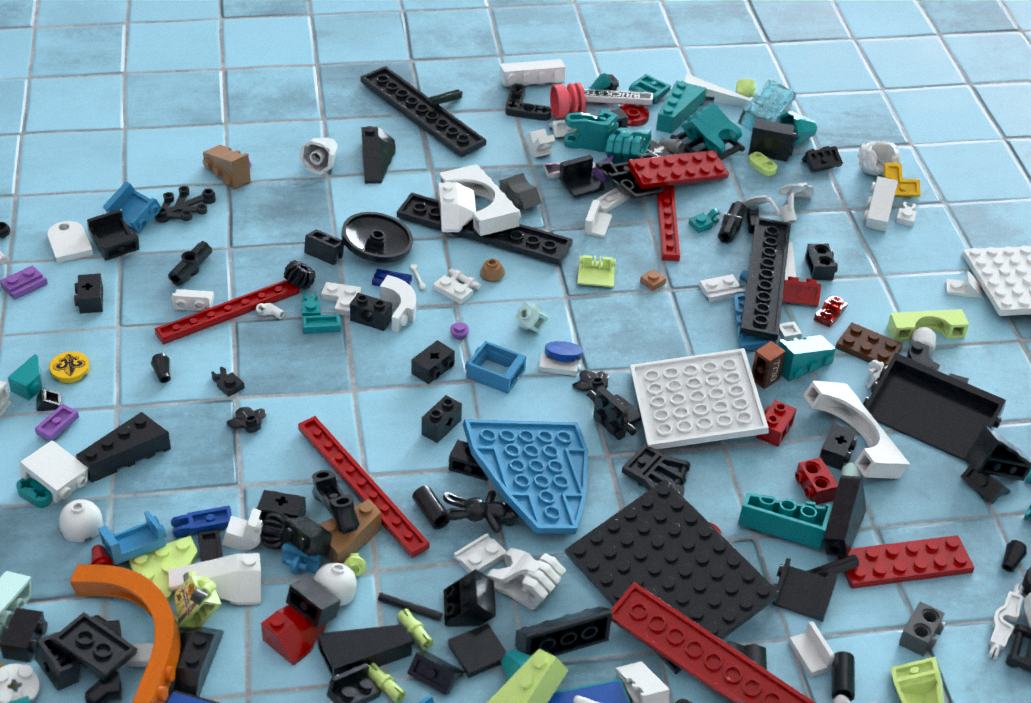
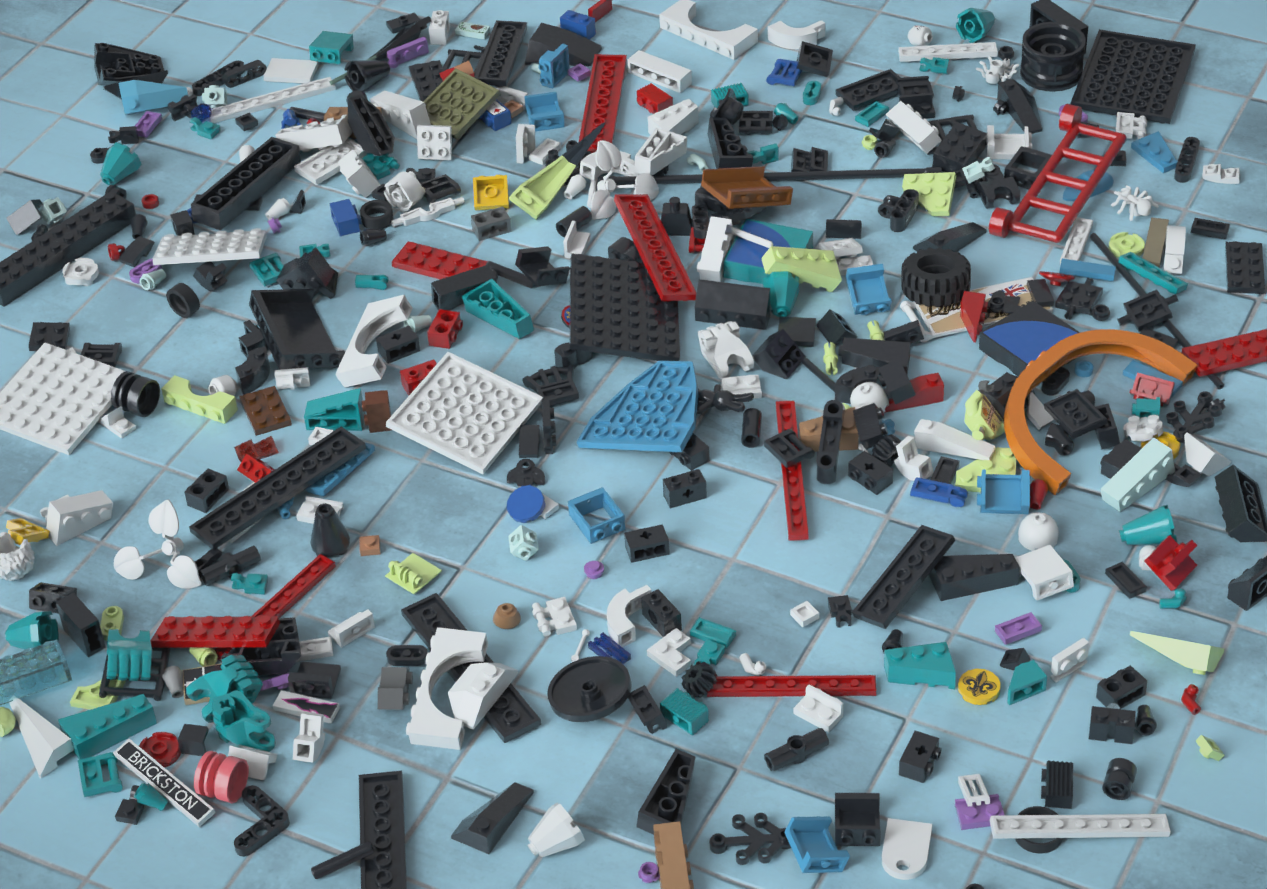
camera: 140 degrees left, 0 degrees up
(41, 299) = (975, 798): none -> white tile
(125, 354) = (920, 664): none -> teal wedge
(179, 407) = (903, 576): none -> black plate
(247, 419) = (846, 566): black plate -> none
(254, 361) = (804, 613): none -> white plate
(259, 196) = (669, 794): none -> black wedge
(299, 252) = (684, 711): none -> teal brick
(359, 601) = (853, 378): none -> black brick
(374, 482) = (785, 451): none -> black plate
(532, 72) = (206, 851): white brick -> none
(536, 217) = (406, 655): none -> black plate
(686, 260) = (328, 533): none -> black cone
(947, 505) = (371, 281): none -> teal bar
(971, 670) = (490, 192): none -> yellow plate
(973, 295) = (135, 394): none -> black wheel

